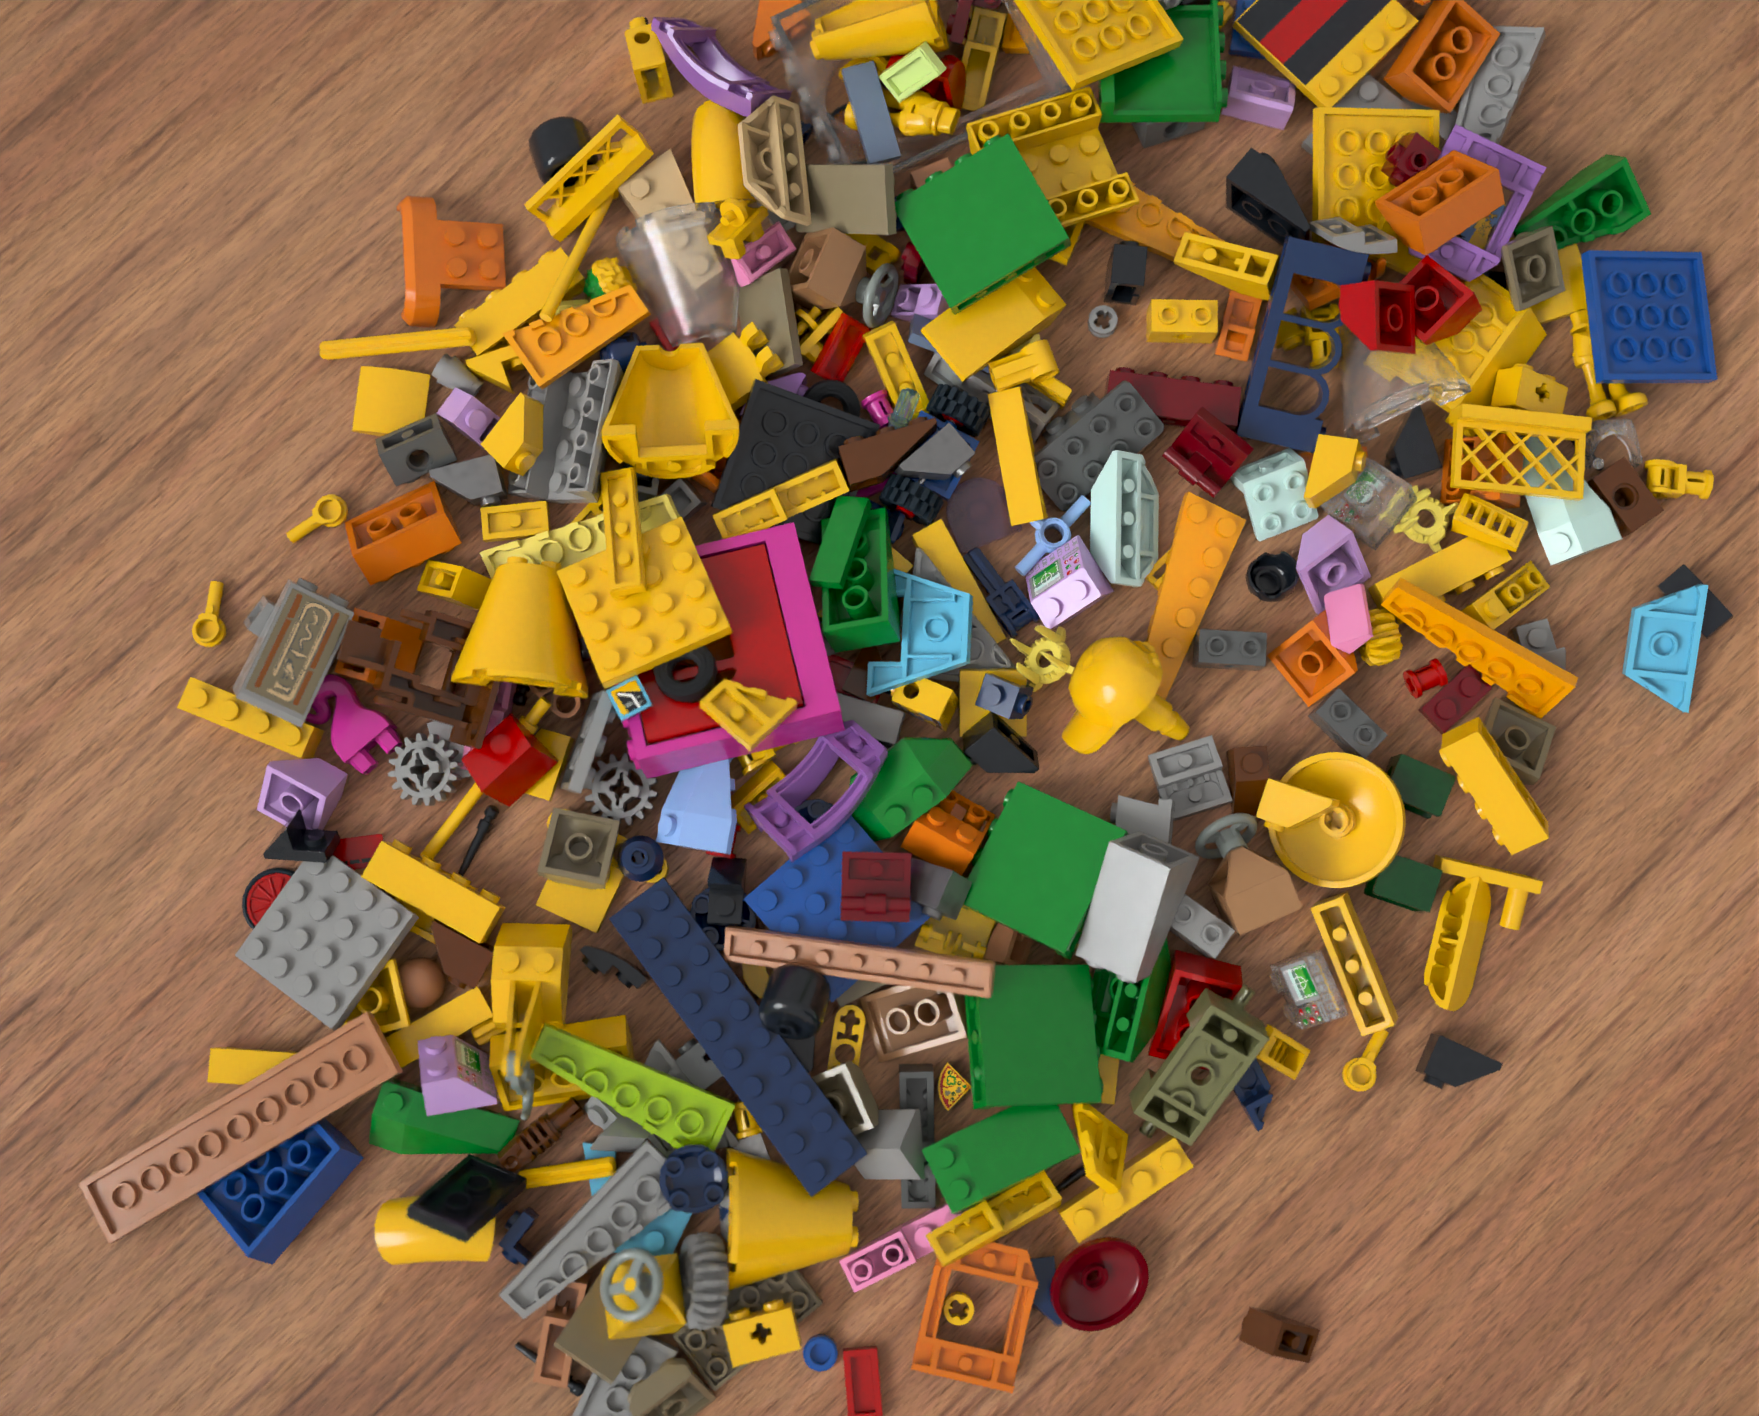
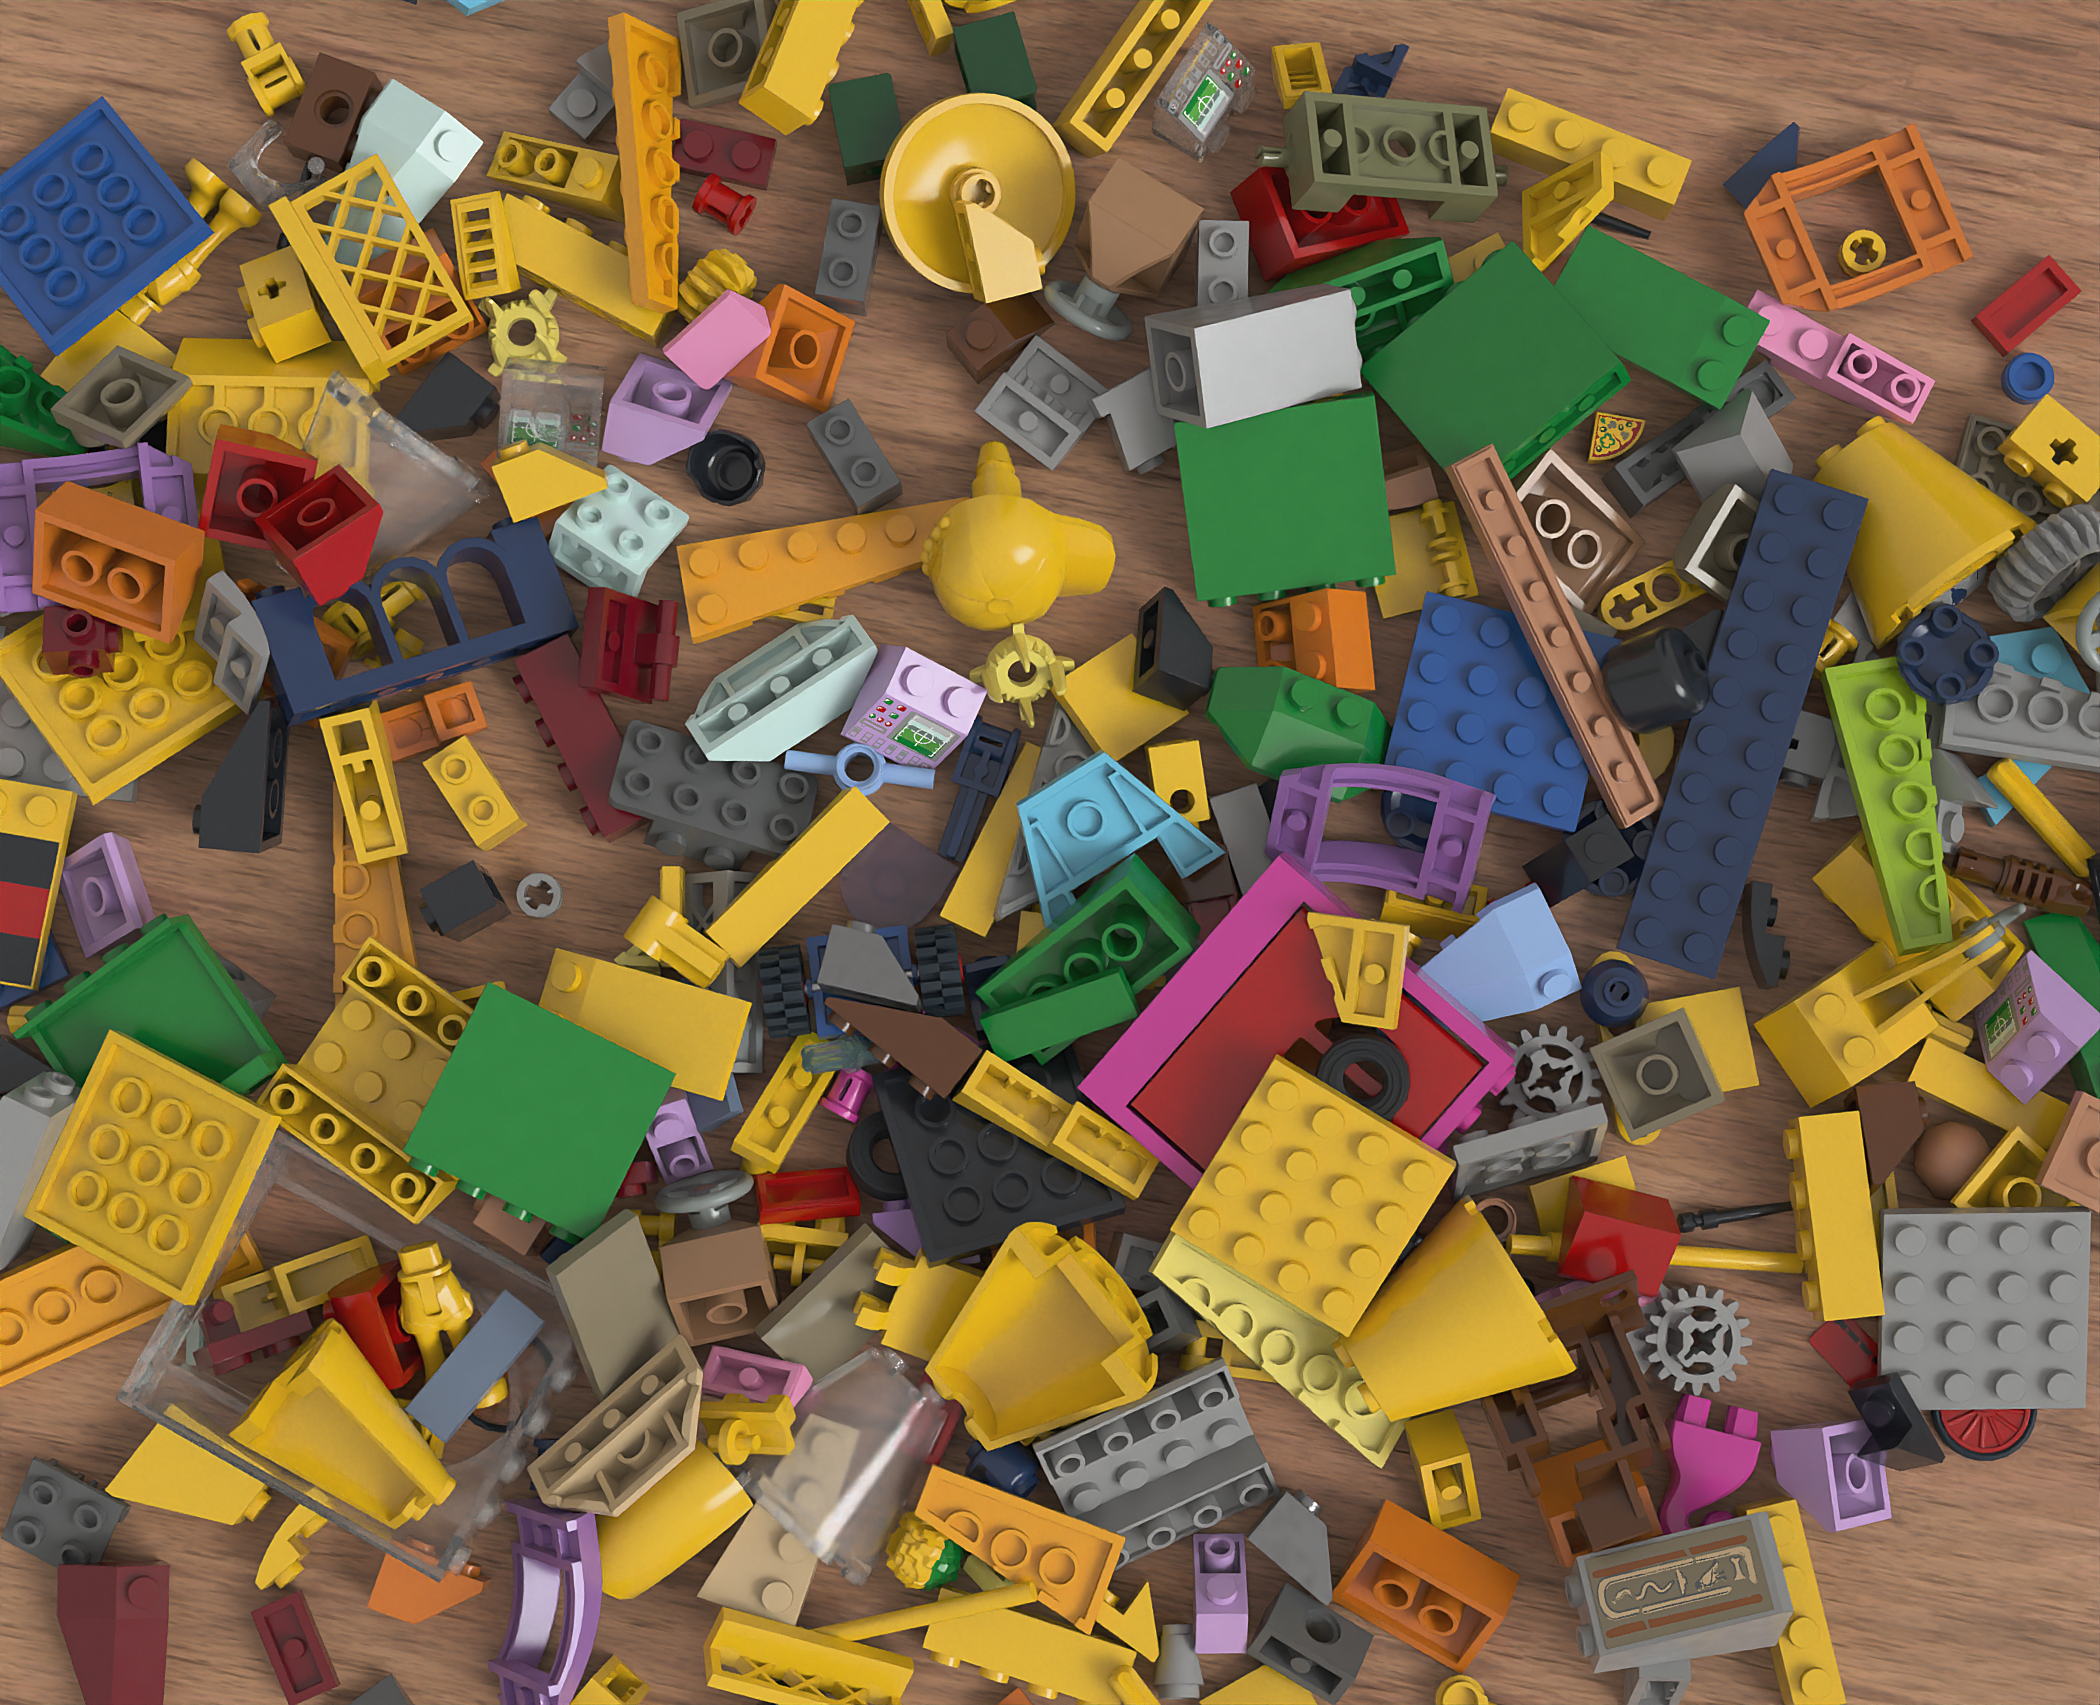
camera: 125 degrees left, 0 degrees up
(514, 521) = (1309, 1453): yellow plate -> none
(517, 435) = (1206, 1520): yellow slope -> none
(623, 532) = (1243, 1285): yellow tile -> none
(629, 698) = (1447, 1122): slope -> none
(875, 886) = (1450, 678): dark red plate -> none
(912, 72) = (392, 1341): yellowish green tile -> none
(937, 889) = (1399, 609): flat silver slope -> none
(994, 1218) = (1740, 276): yellow slope -> none
(1004, 697) = (1108, 685): bracket -> none
(1099, 1284) = (1719, 107): dark red dish -> none

